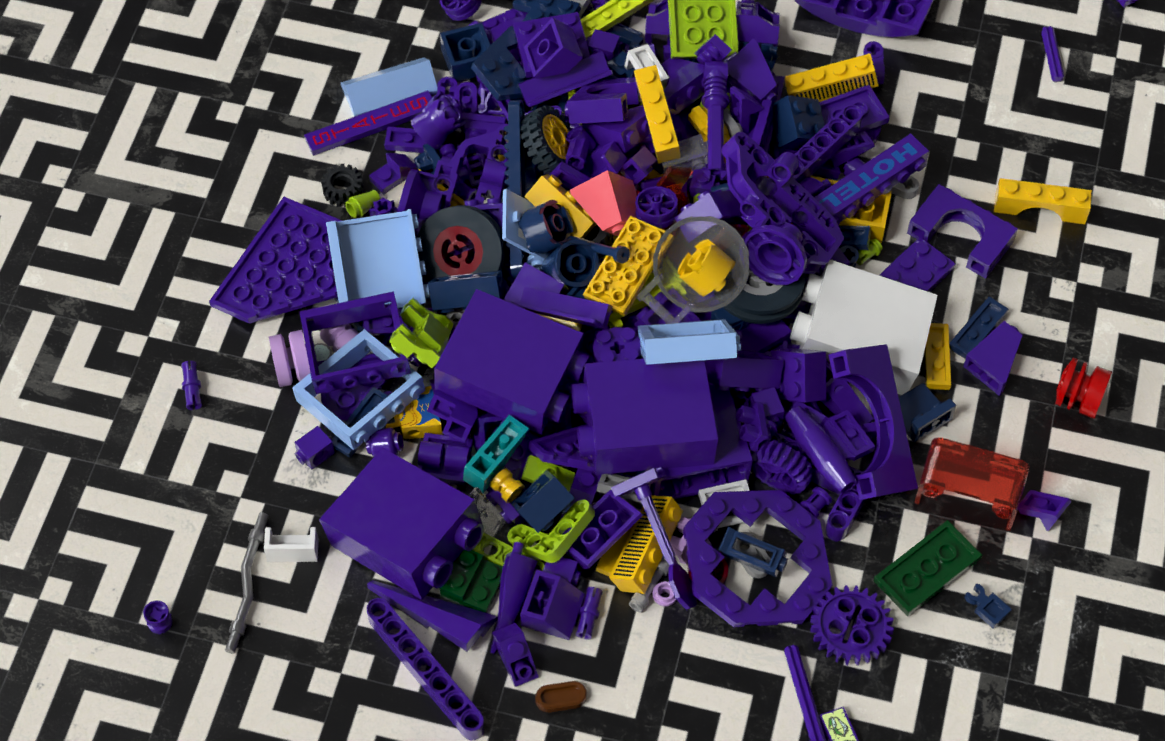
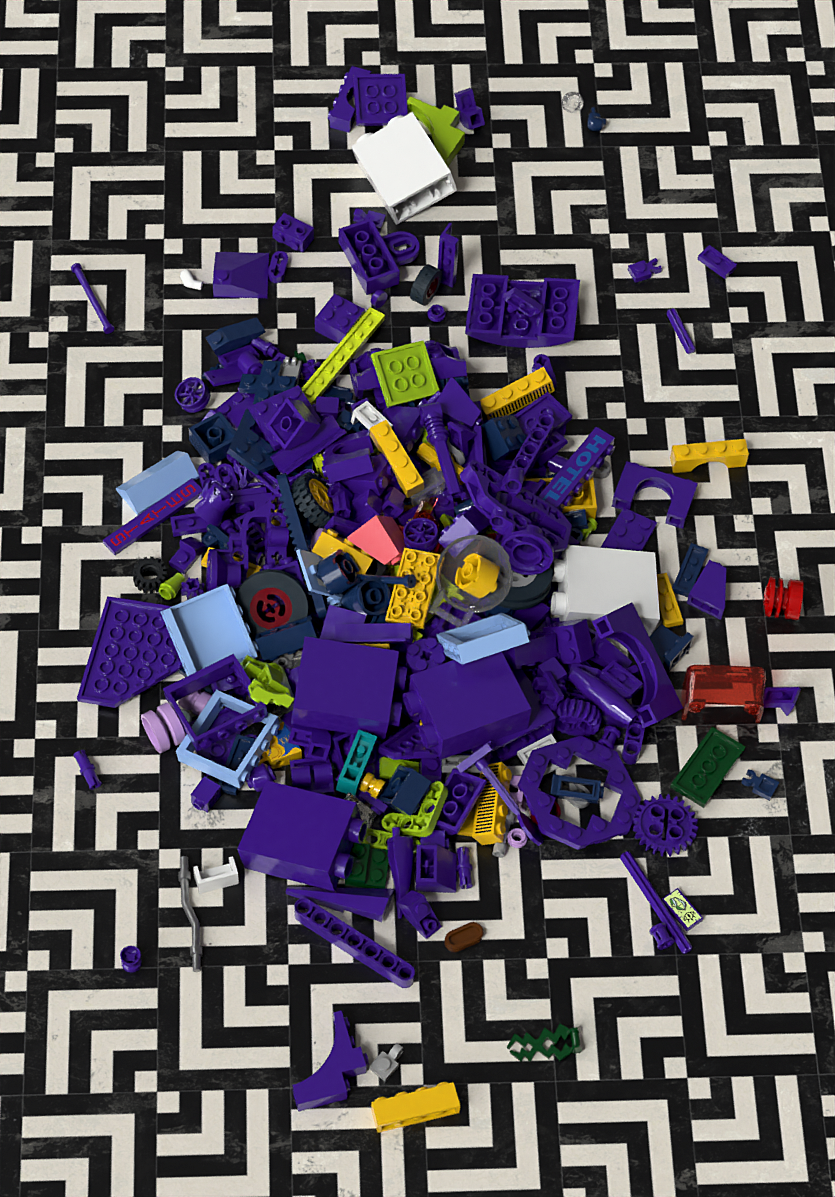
camera: 20 degrees left, 0 degrees up
(712, 50) = (423, 395): dark purple plate -> none

